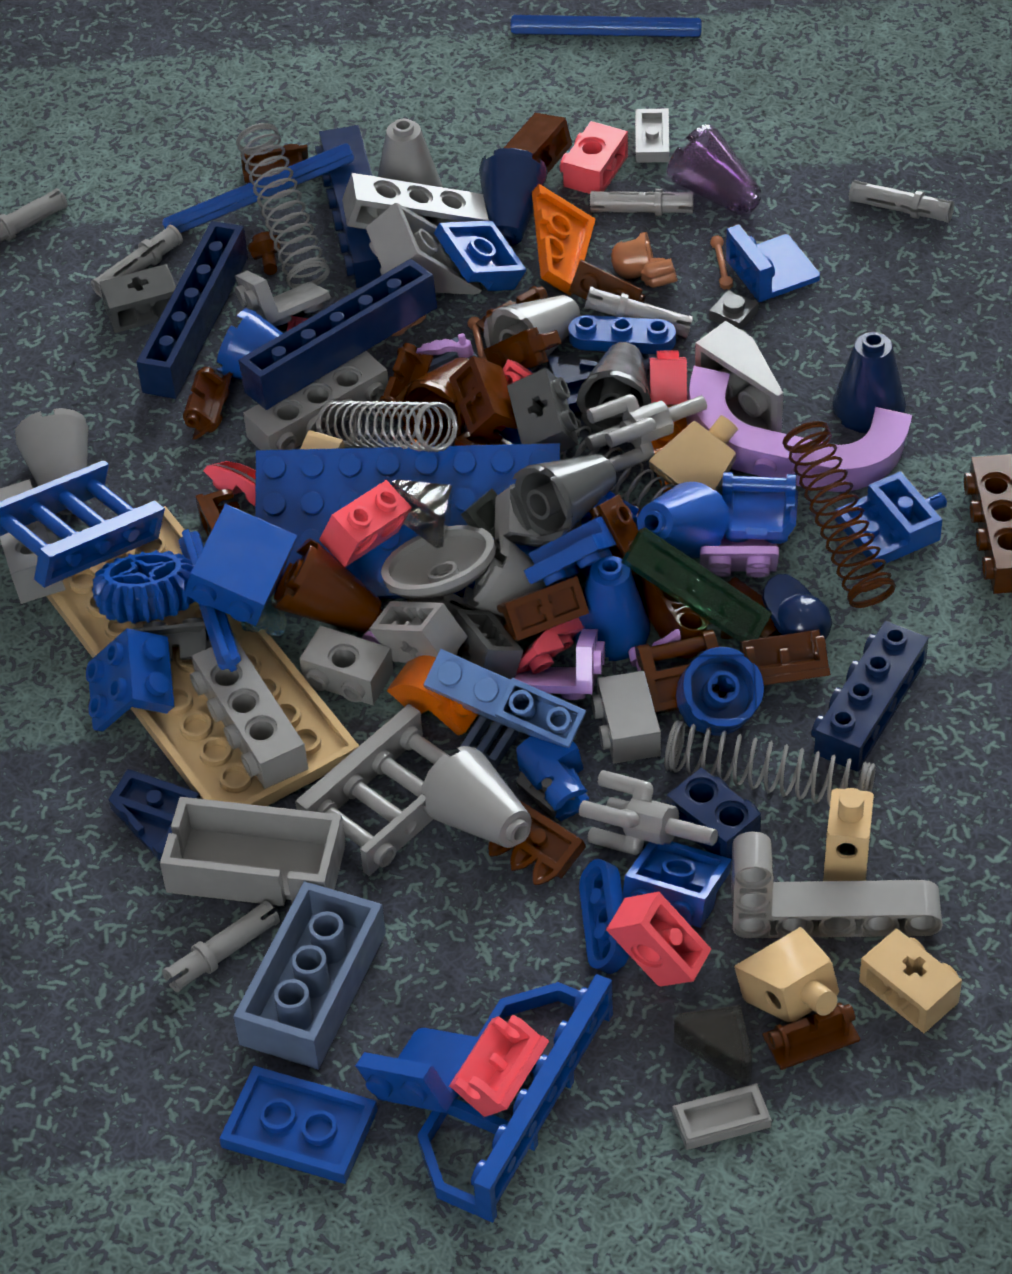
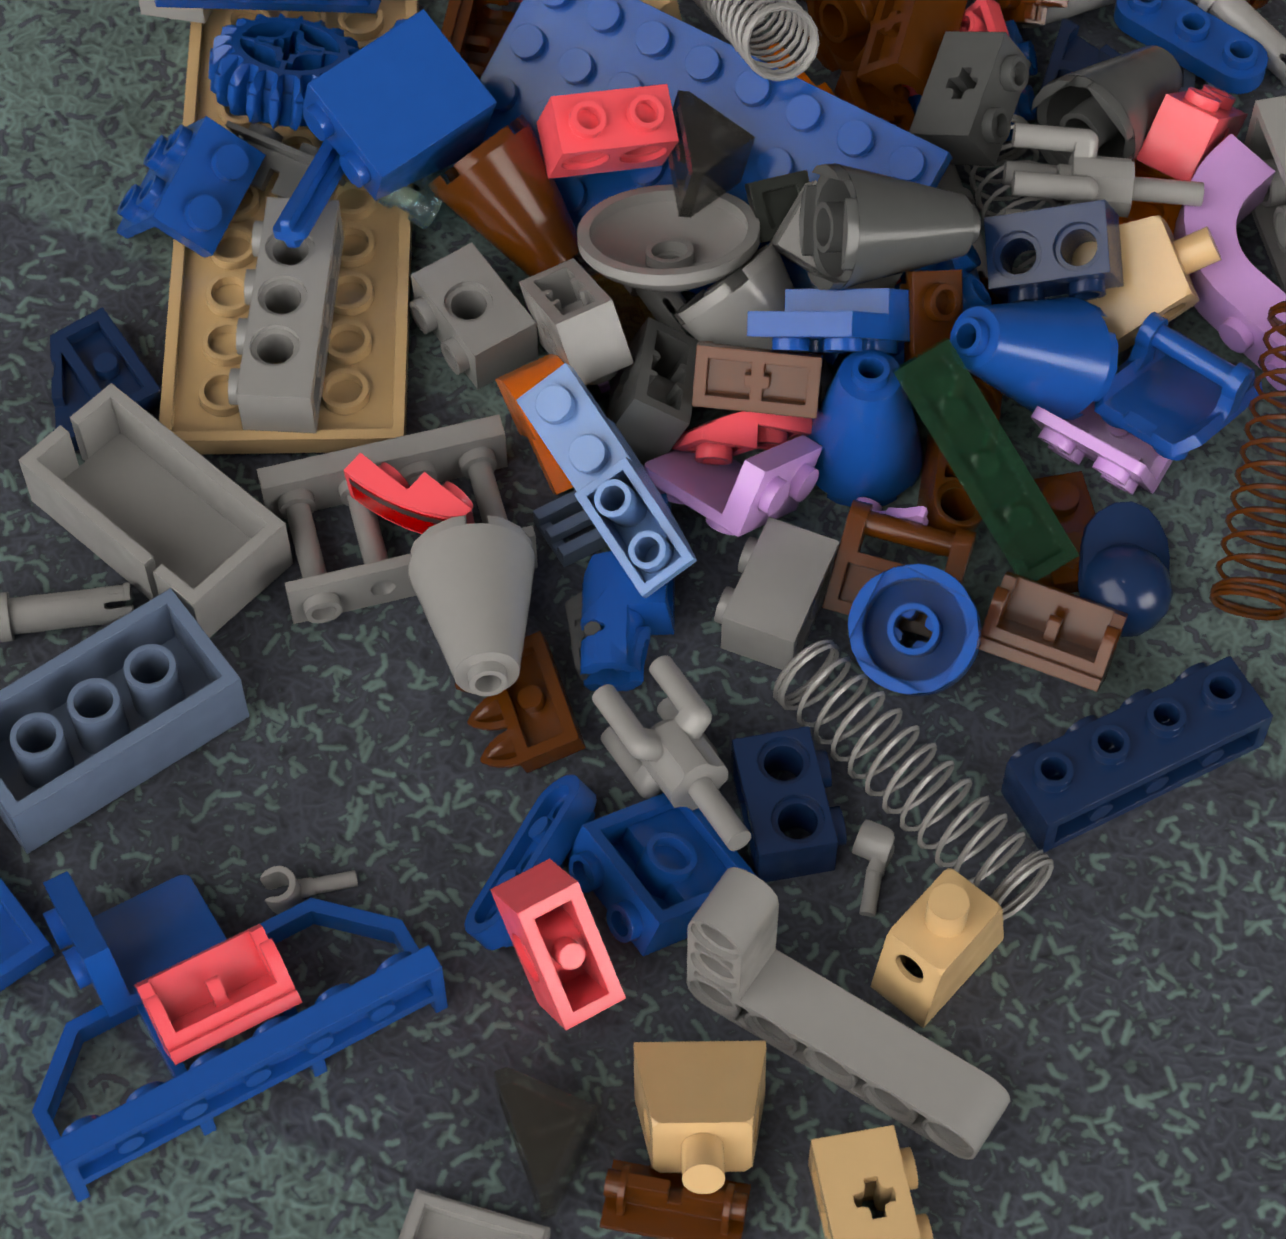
camera: 30 degrees right, 10 degrees up
(385, 774) = (411, 507): none -> coral slope
(487, 1000) = (301, 888): none -> light grey hand
(646, 459) = (1054, 237): none -> dark blue brick
(775, 811) = (874, 844): none -> light grey hand

